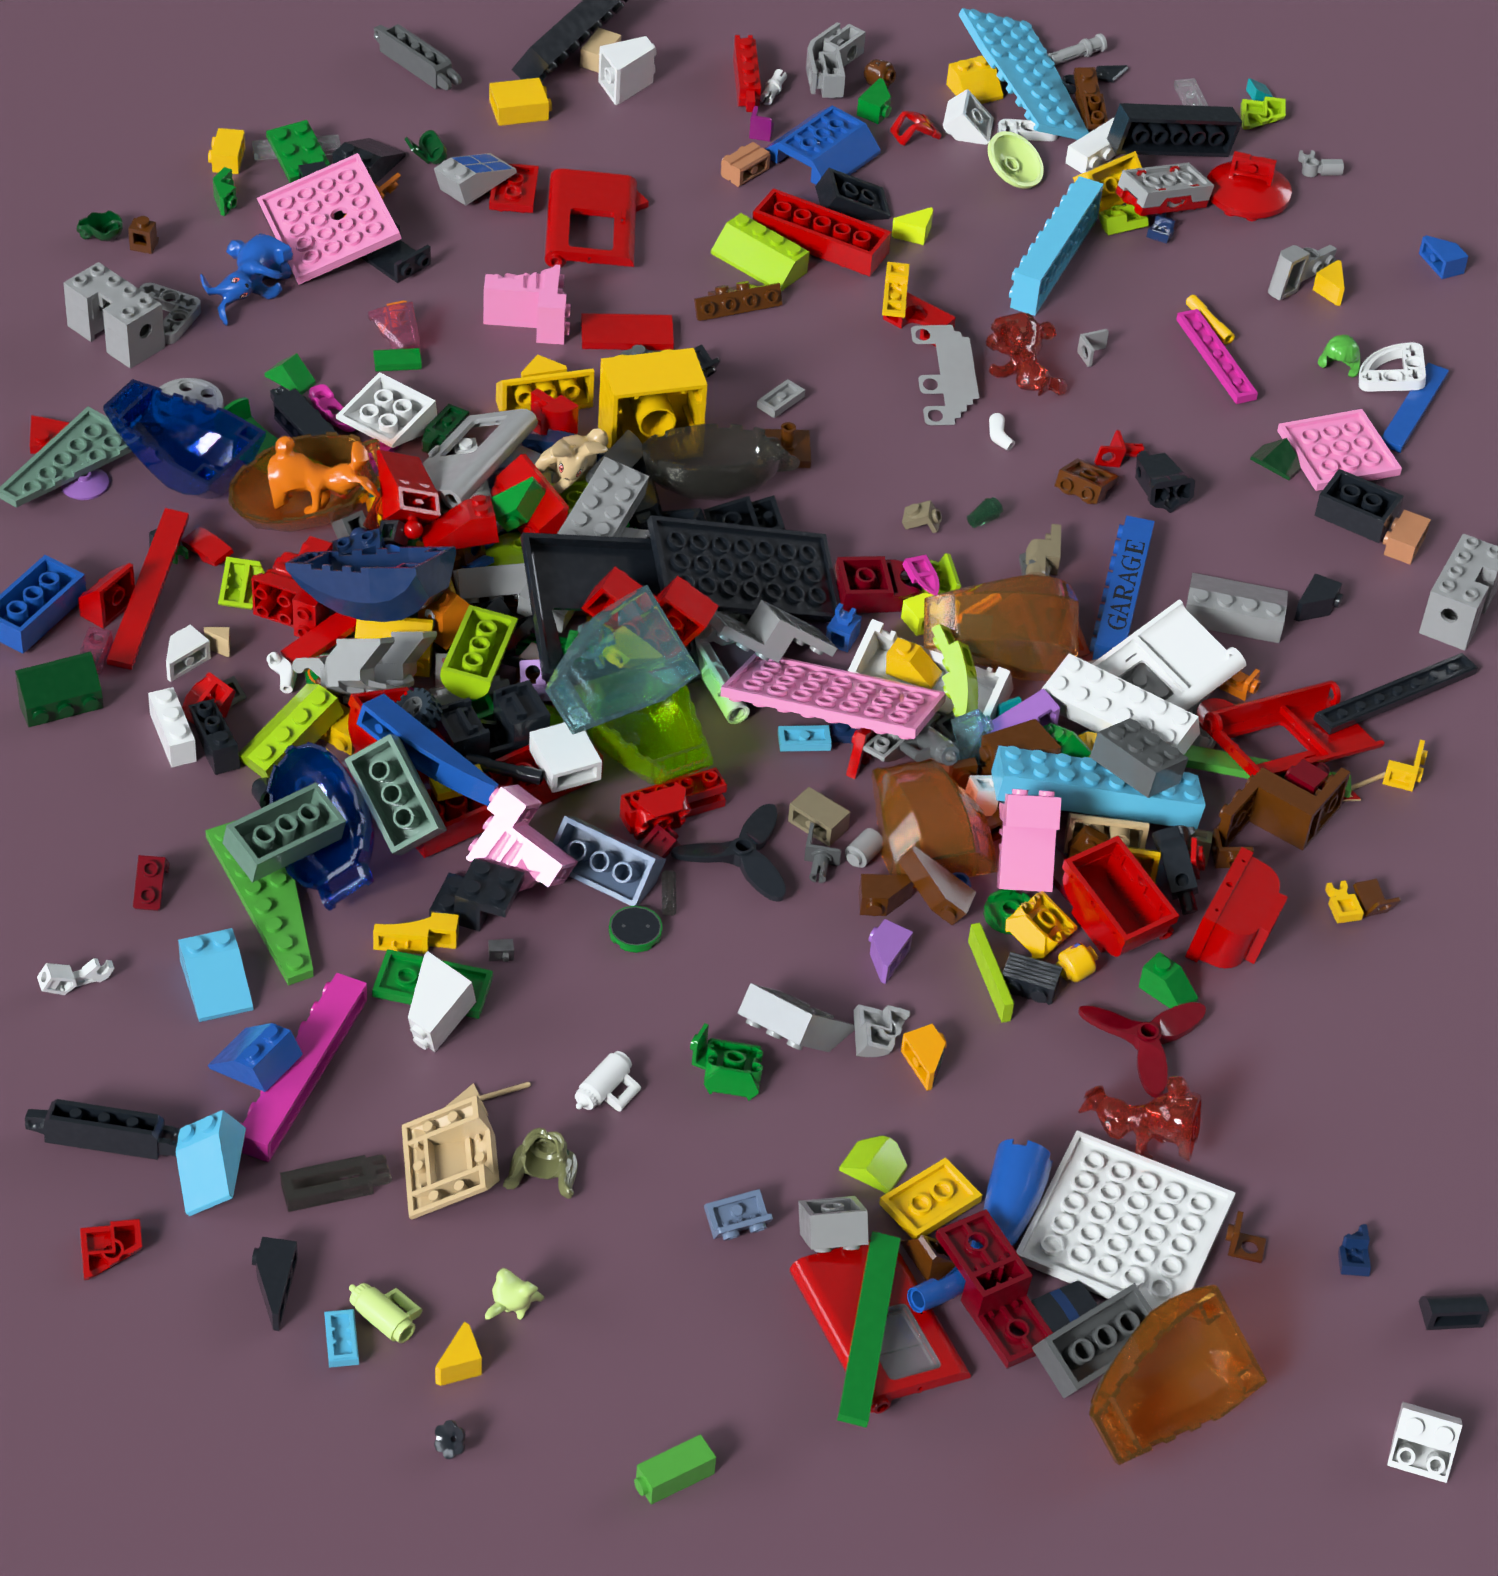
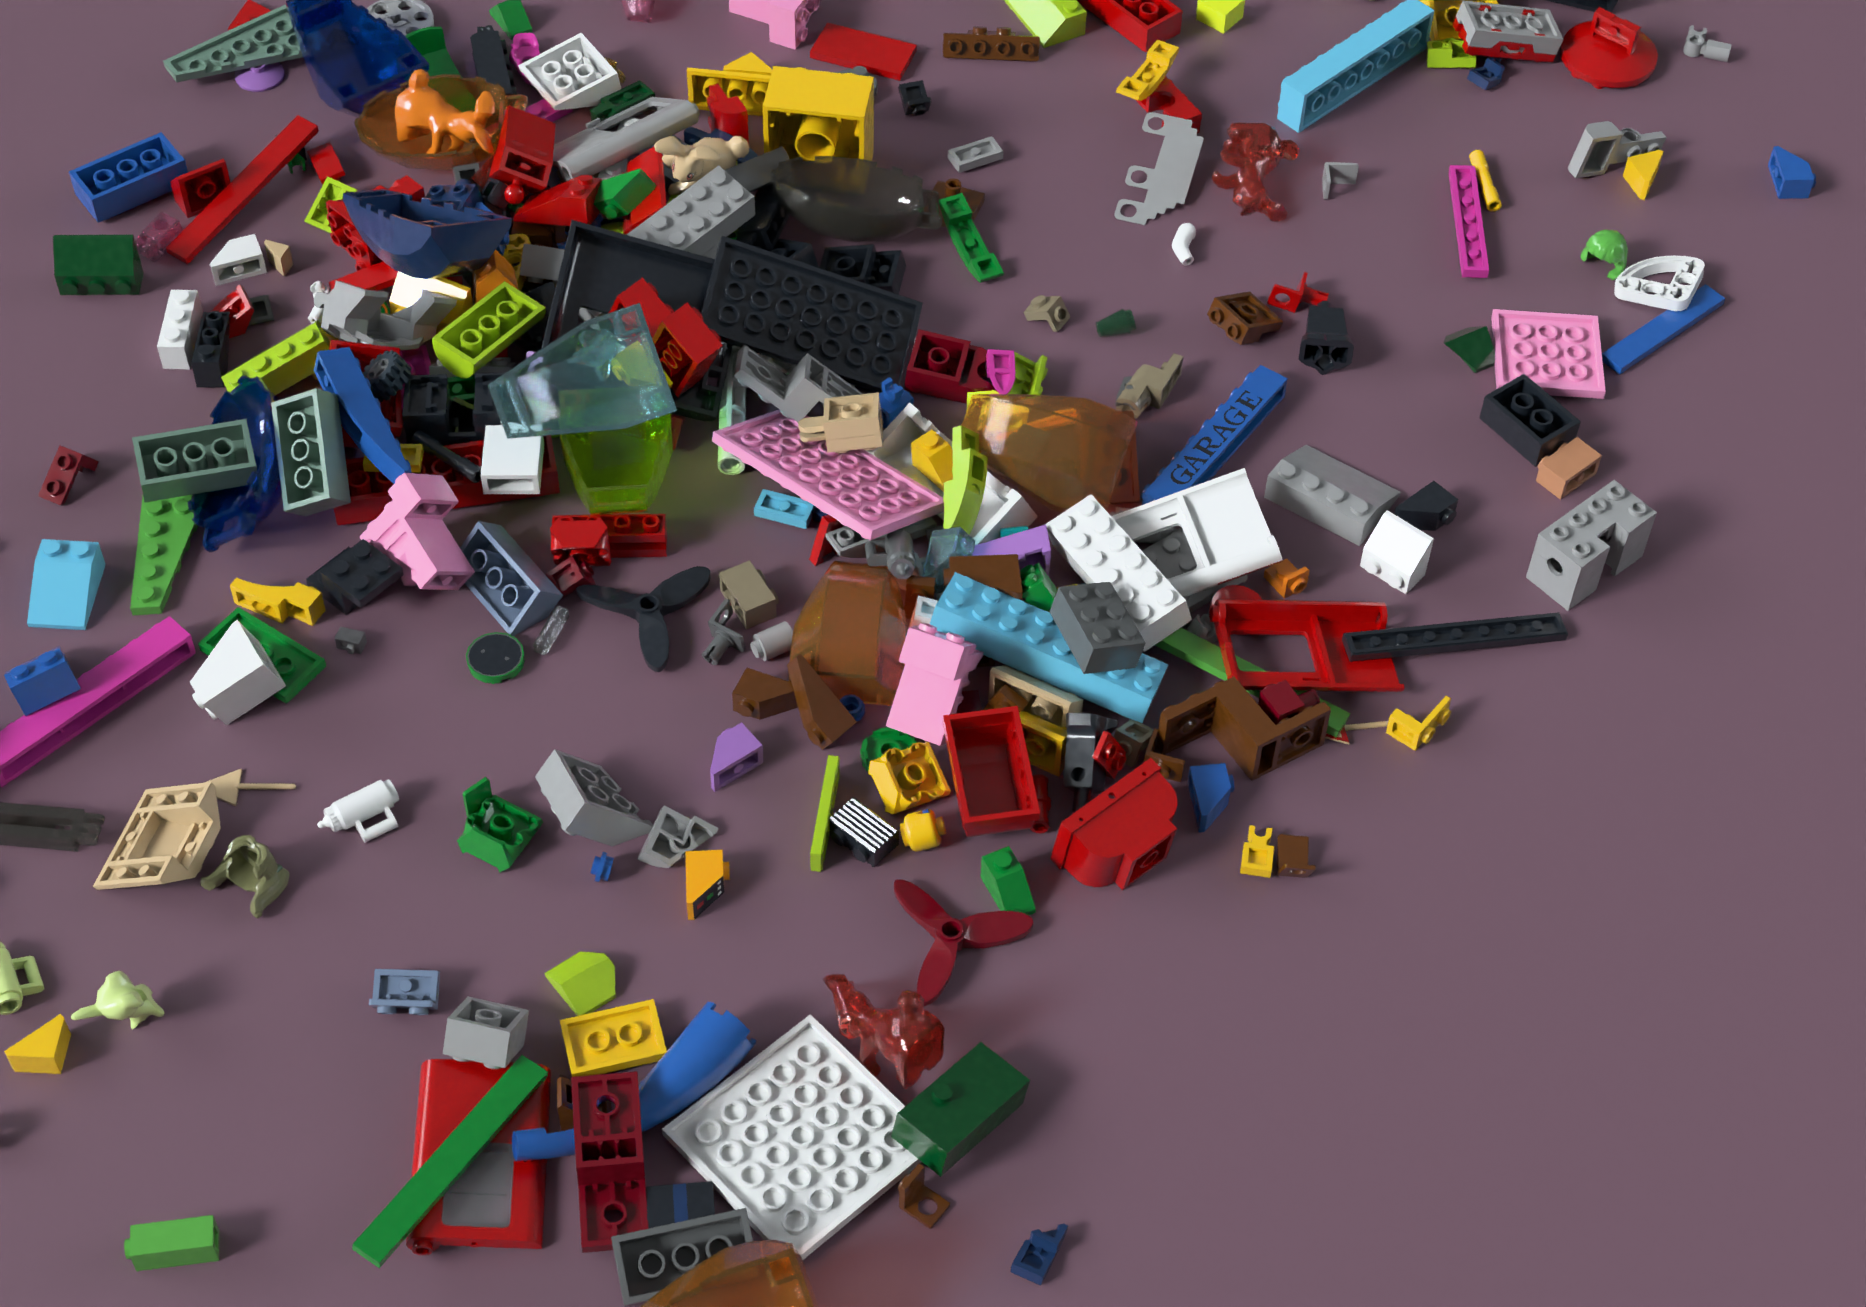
camera: 25 degrees right, 5 degrees up
(397, 359) = (622, 26): green tile -> none
(820, 475) = (967, 239): none -> green slope
(829, 650) = (846, 424): none -> tan brick
(836, 1069) = (601, 867): none -> blue plate
(1241, 1162) = (960, 1108): none -> dark green brick
(1284, 862) = (1209, 792): none -> blue slope
(1319, 638) = (1397, 552): none -> white slope

